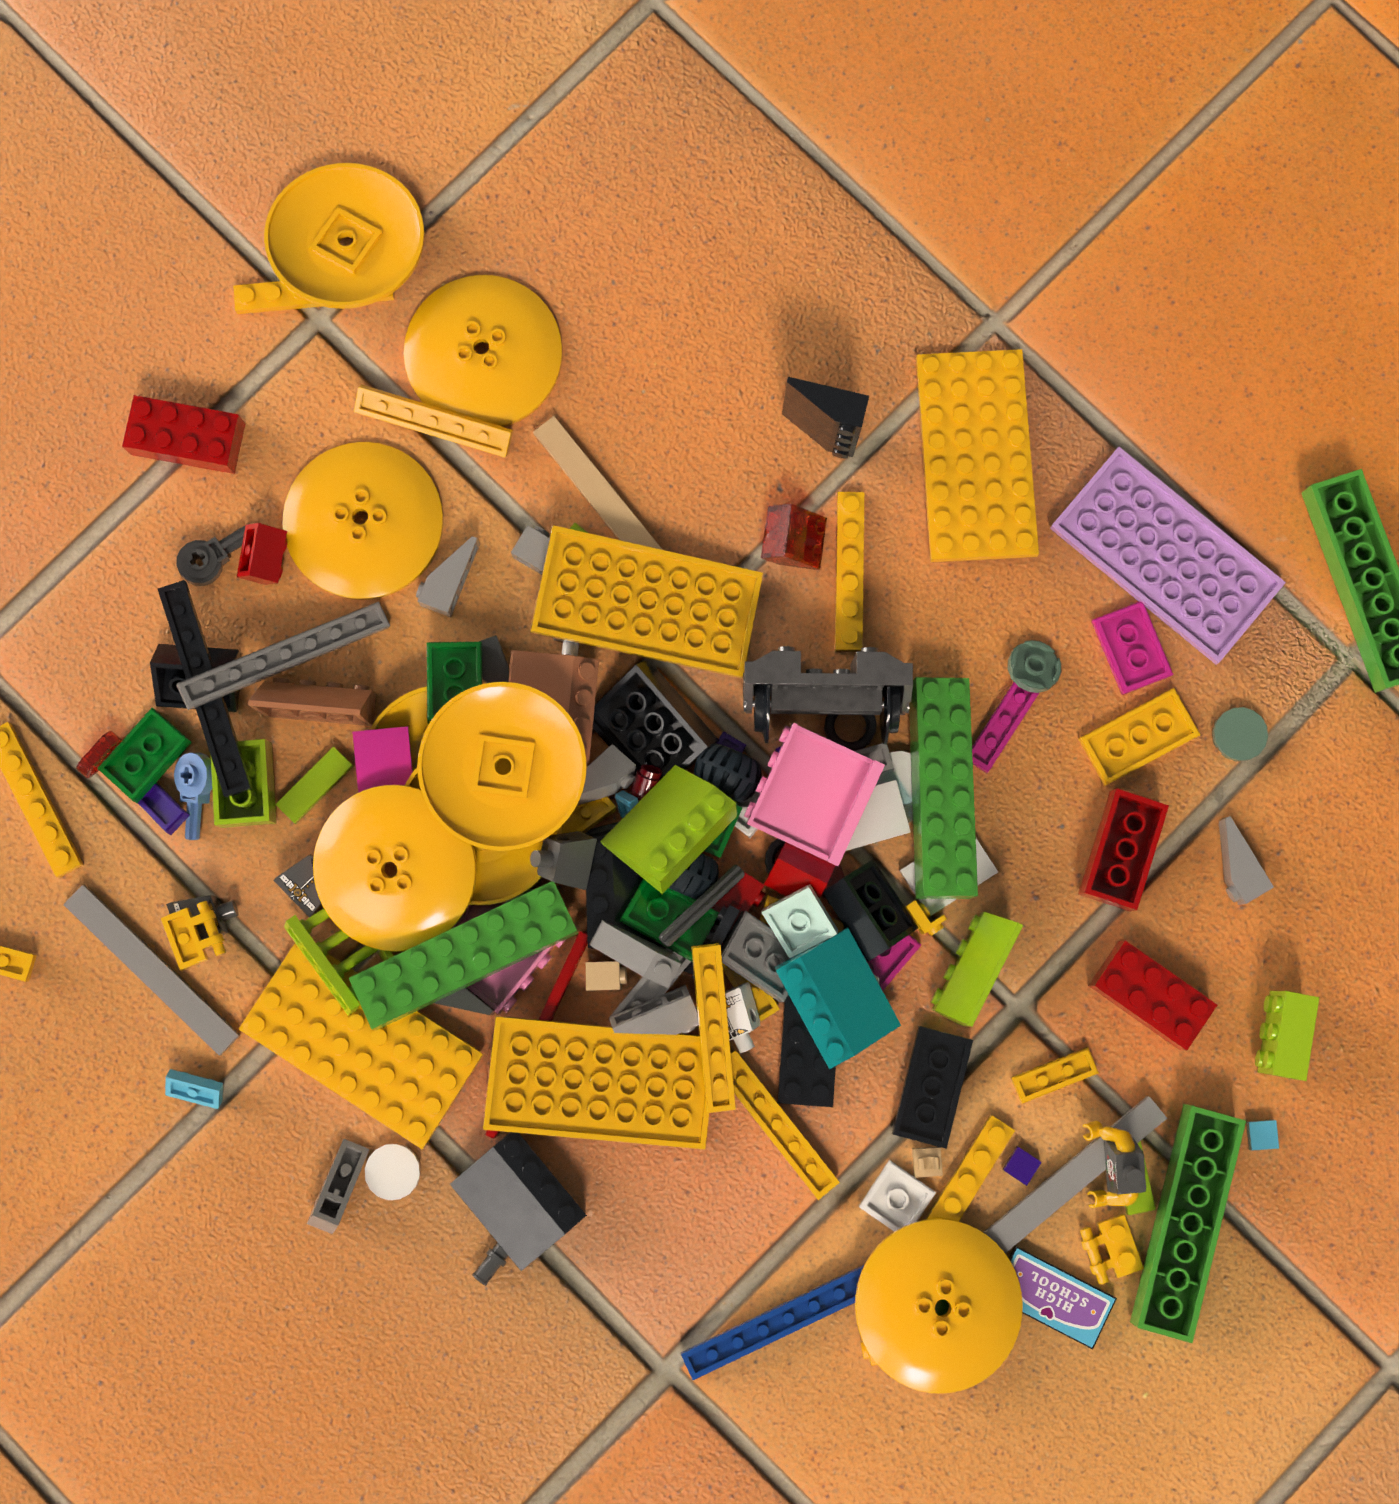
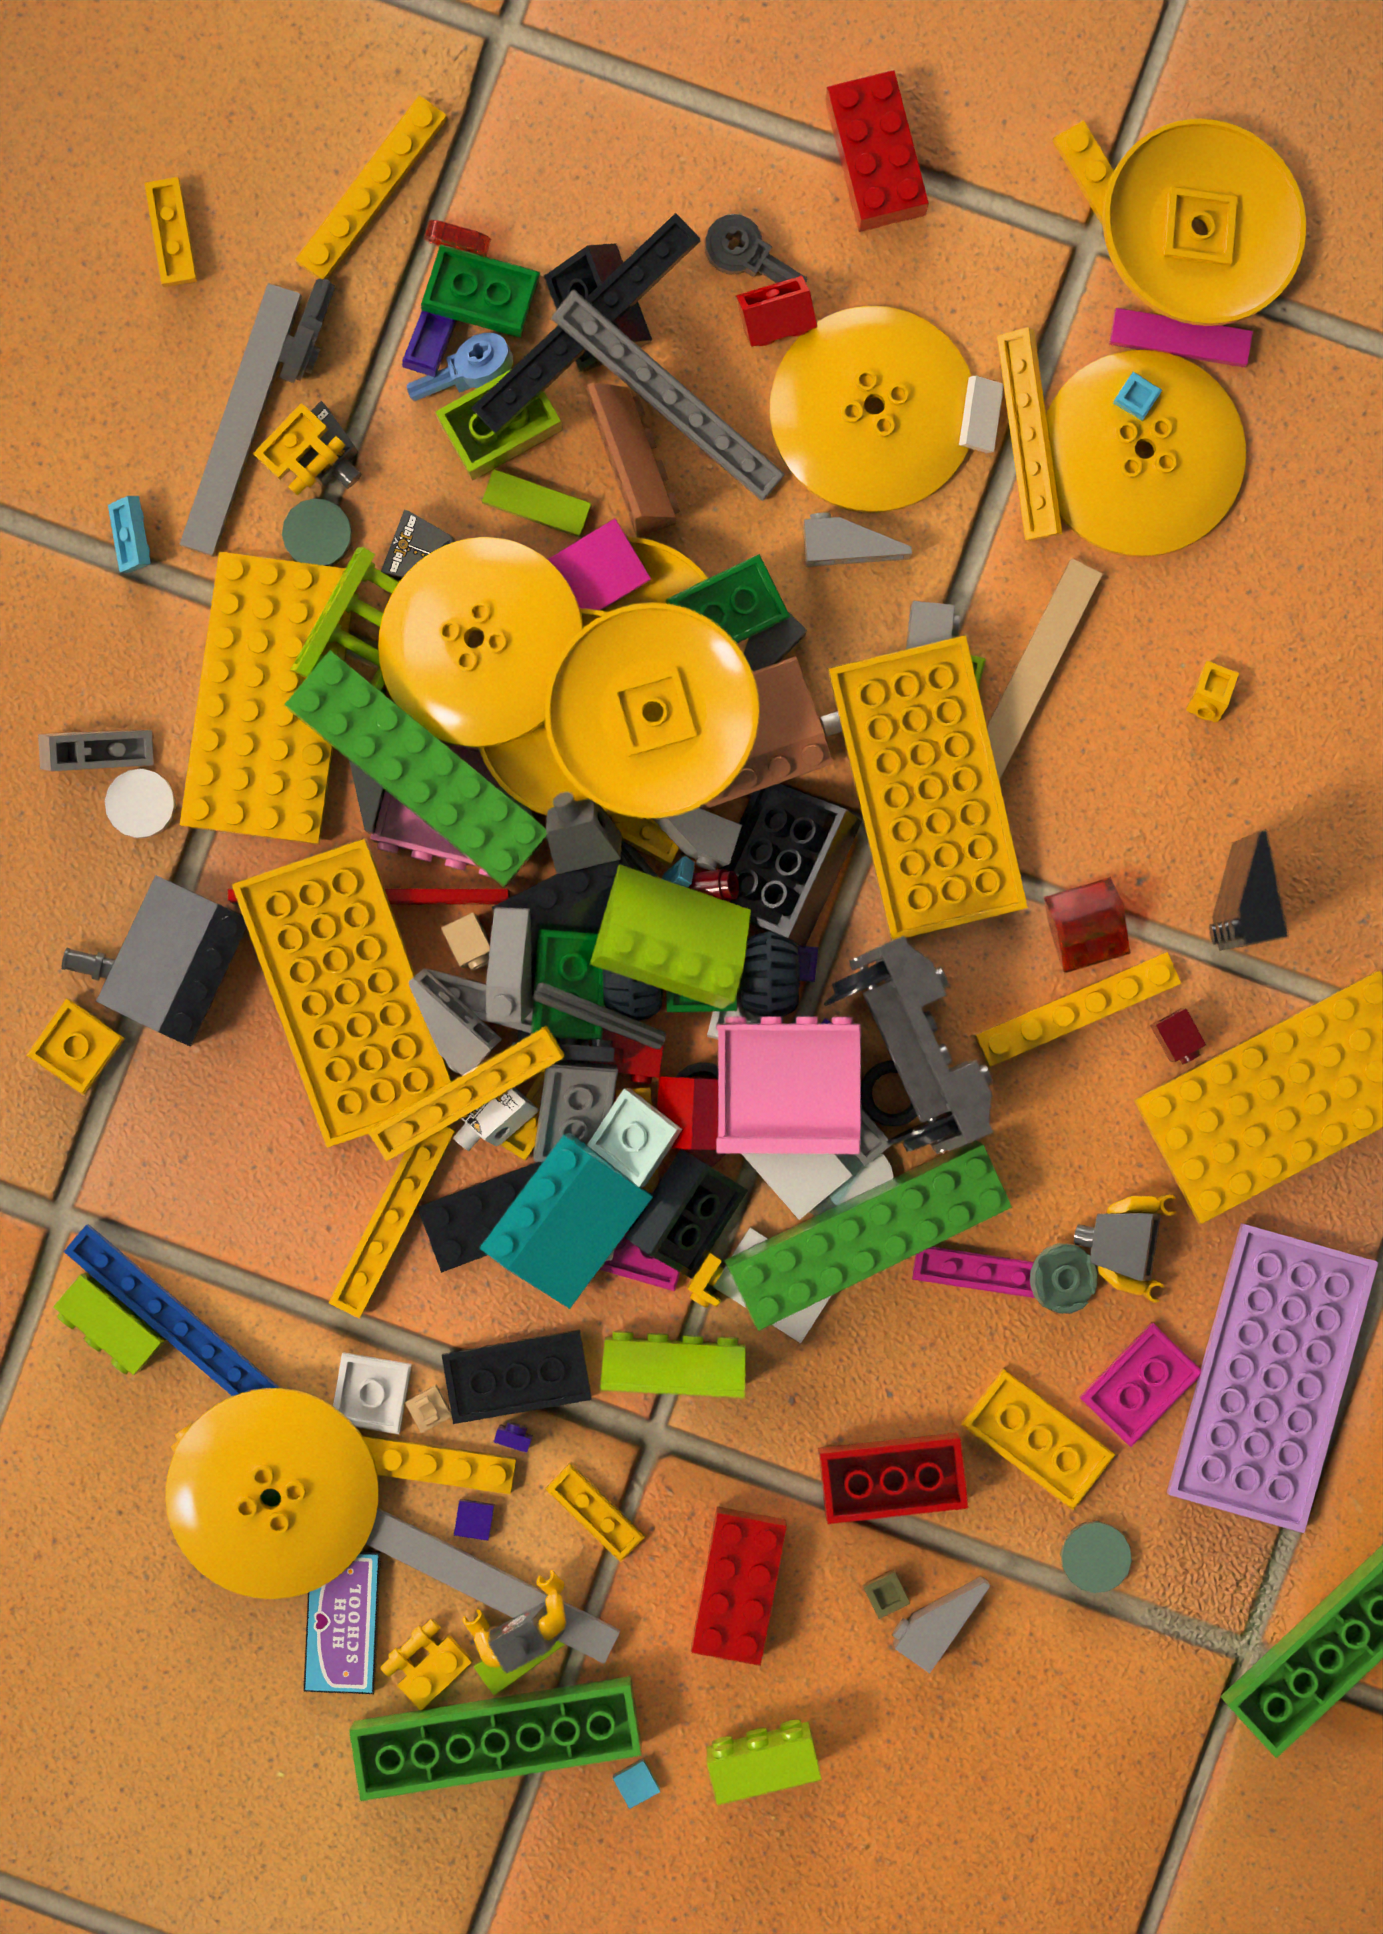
camera: 65 degrees right, 5 degrees up
(123, 903) = (299, 351): none -> dark grey piece
(259, 952) = (317, 532): none -> sand green tile
(403, 447) = (981, 414): none -> white tile
(416, 289) = (1167, 335): none -> dark pink tile
(442, 335) = (1137, 396): none -> medium azure tile
(547, 1301) = (75, 1046): none -> yellow plate
(671, 378) = (1212, 692): none -> yellow bracket
(761, 1371) = (108, 1324): none -> lime brick
(900, 510) = (1179, 1036): none -> dark red brick
(975, 1108) = (513, 1436): none -> dark purple plate
(1028, 611) = (1126, 1243): none -> dark grey torso
(1203, 893) = (886, 1594): none -> olive plate

